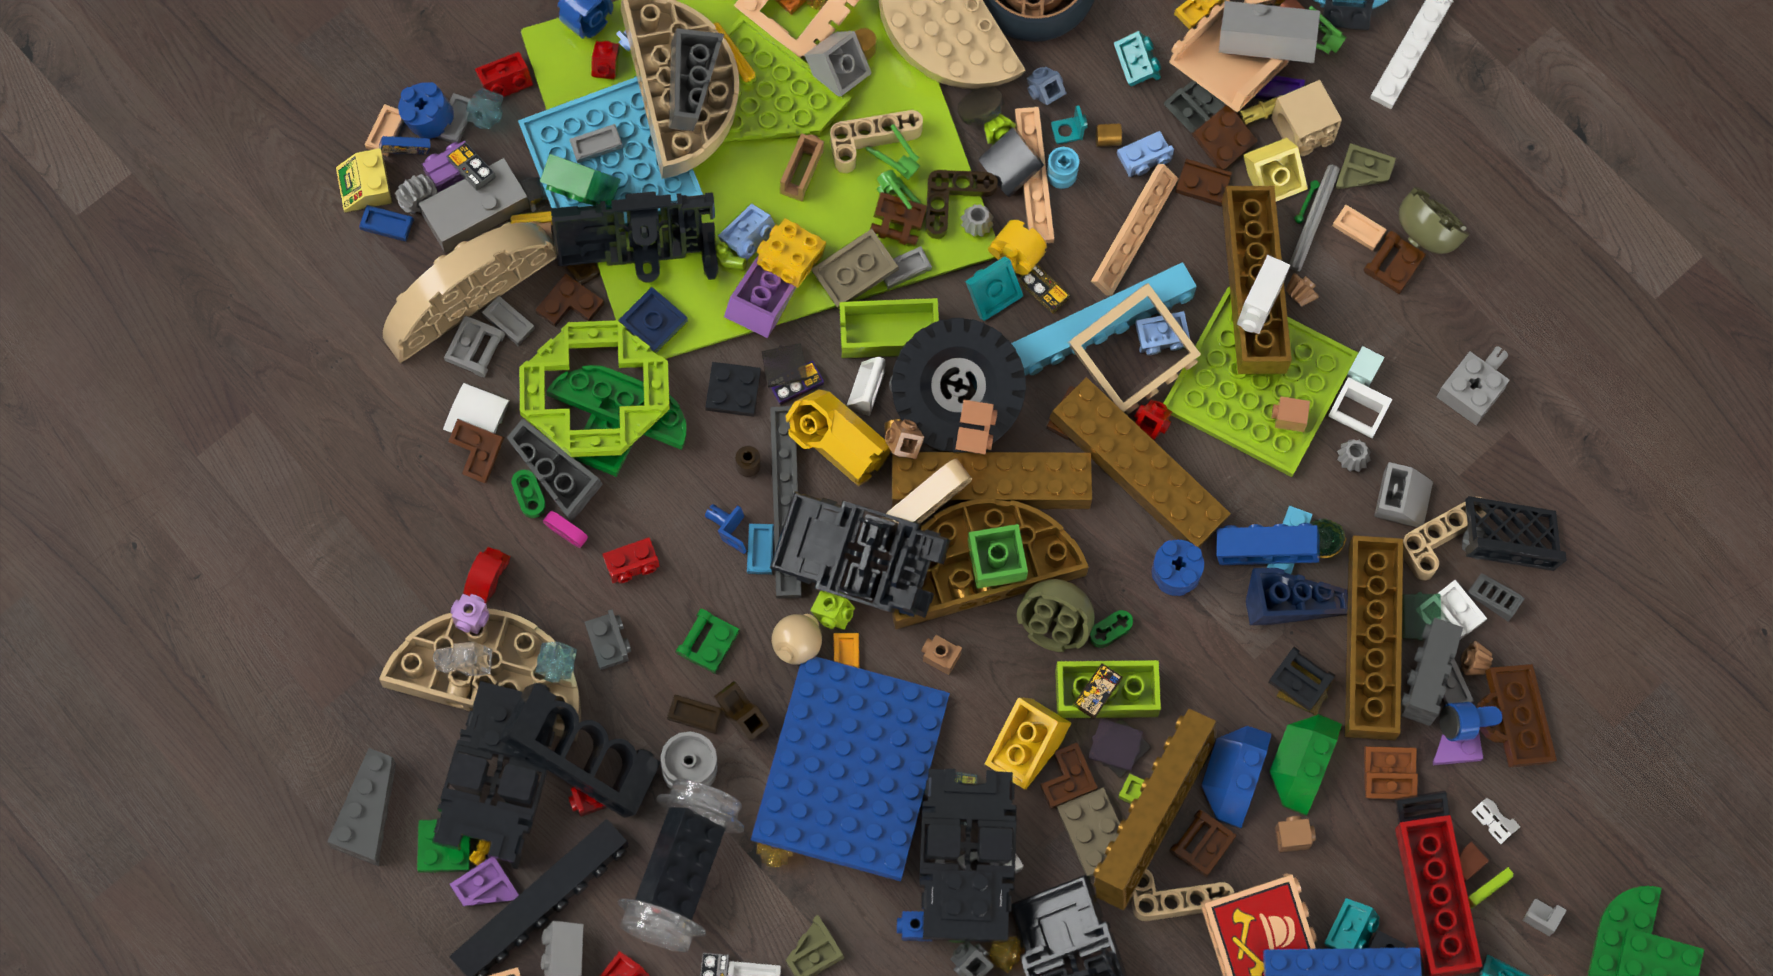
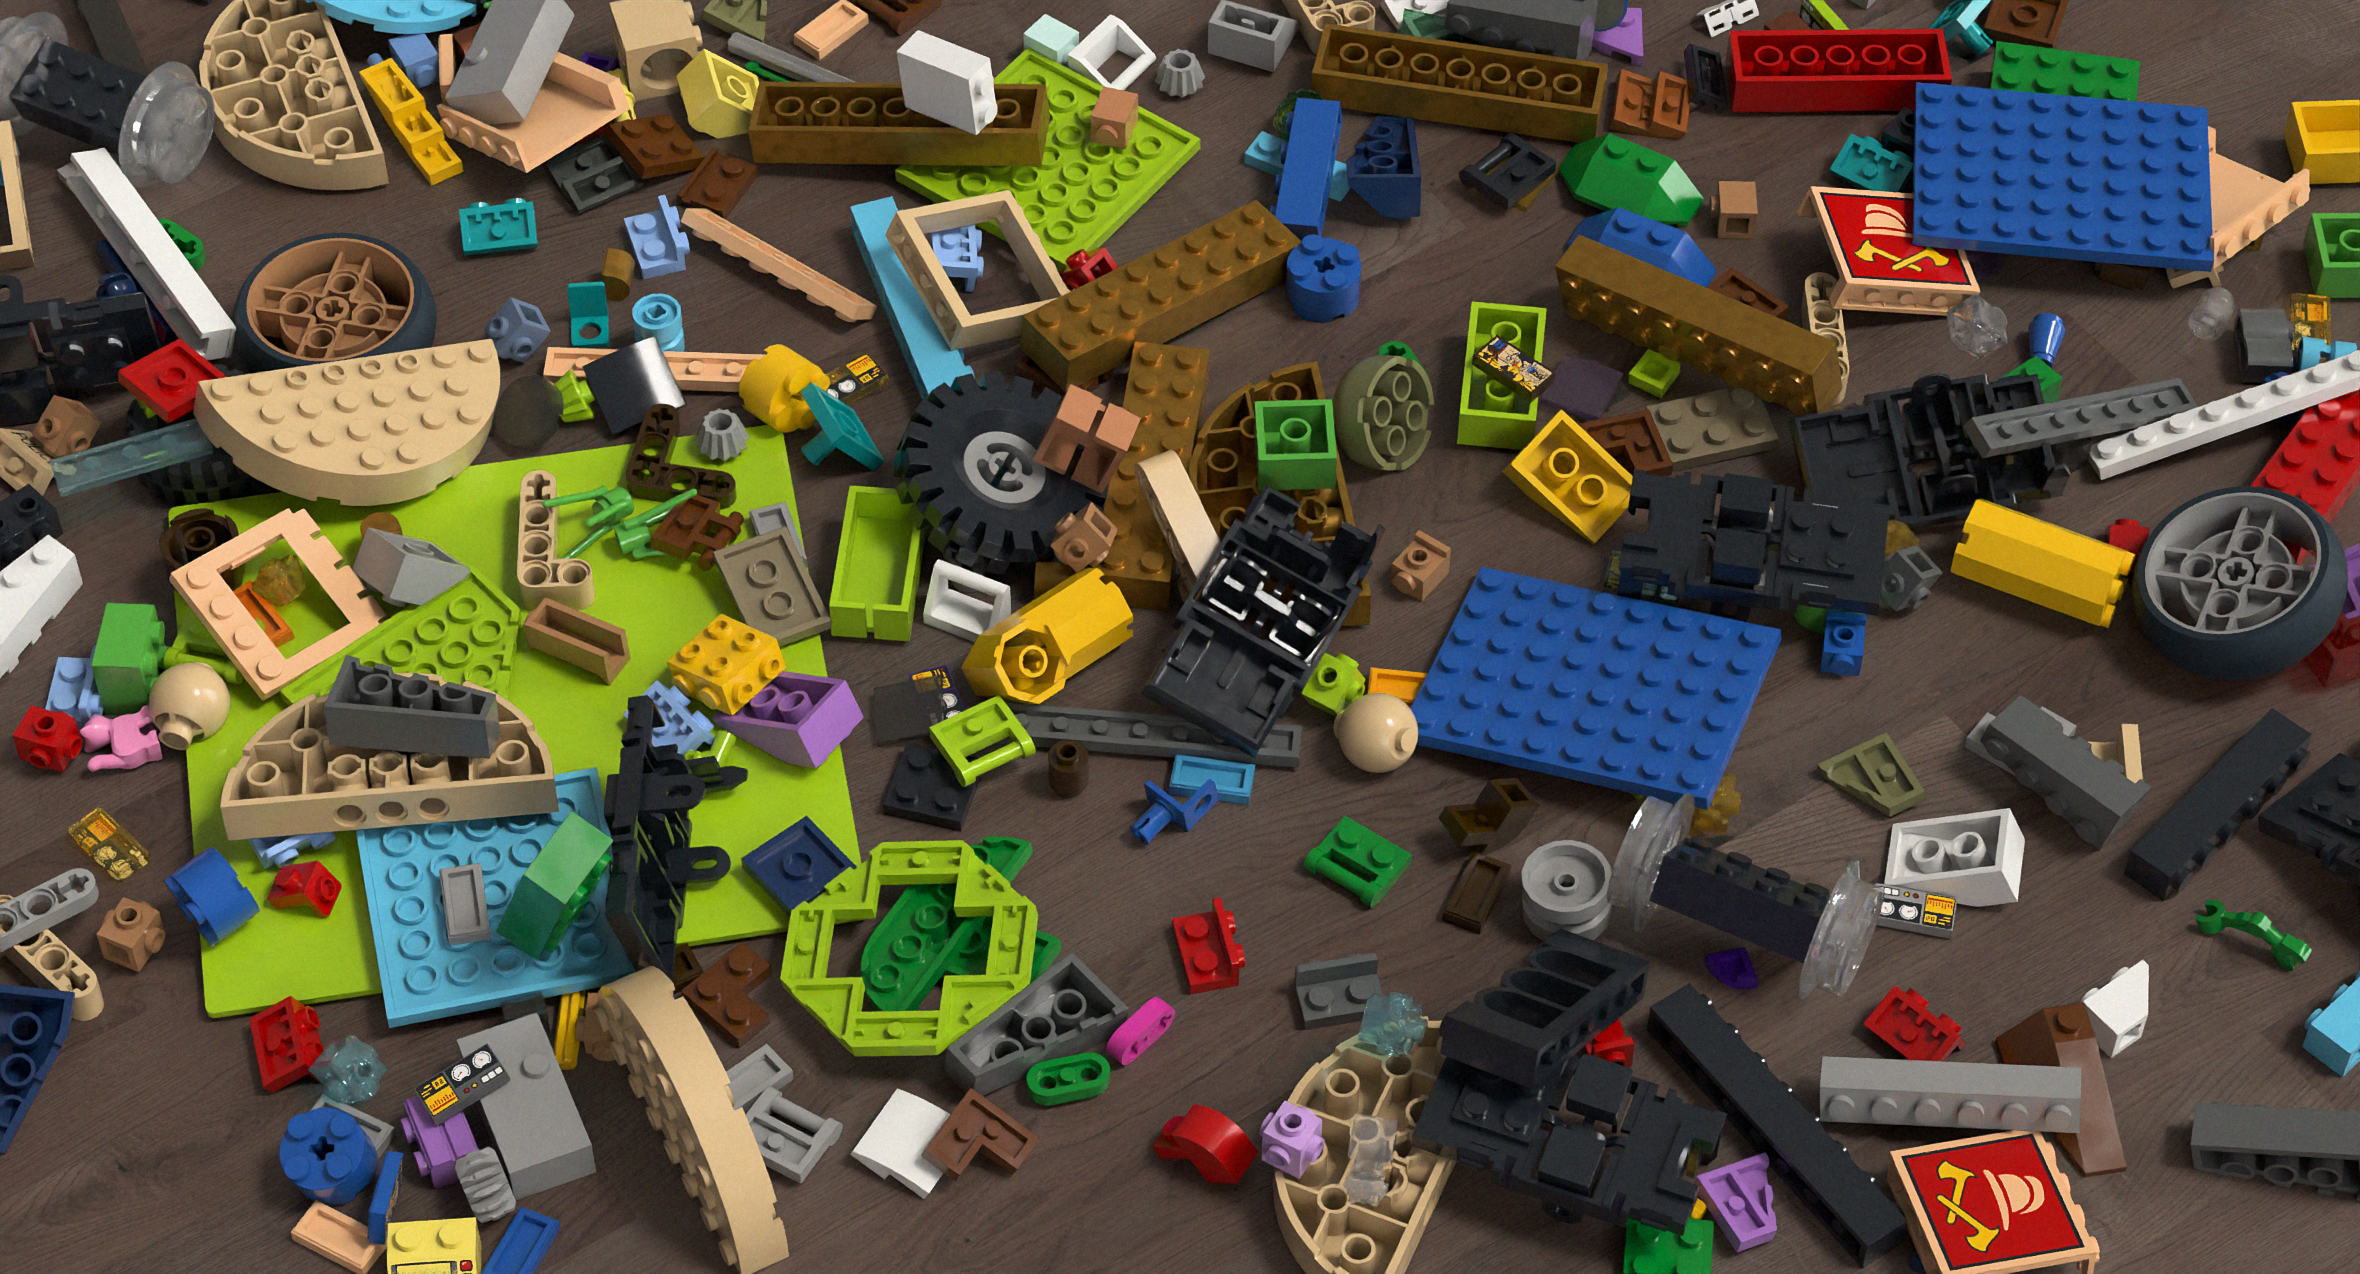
camera: 80 degrees left, 20 degrees down
(764, 403) = (976, 730): none -> lime plate

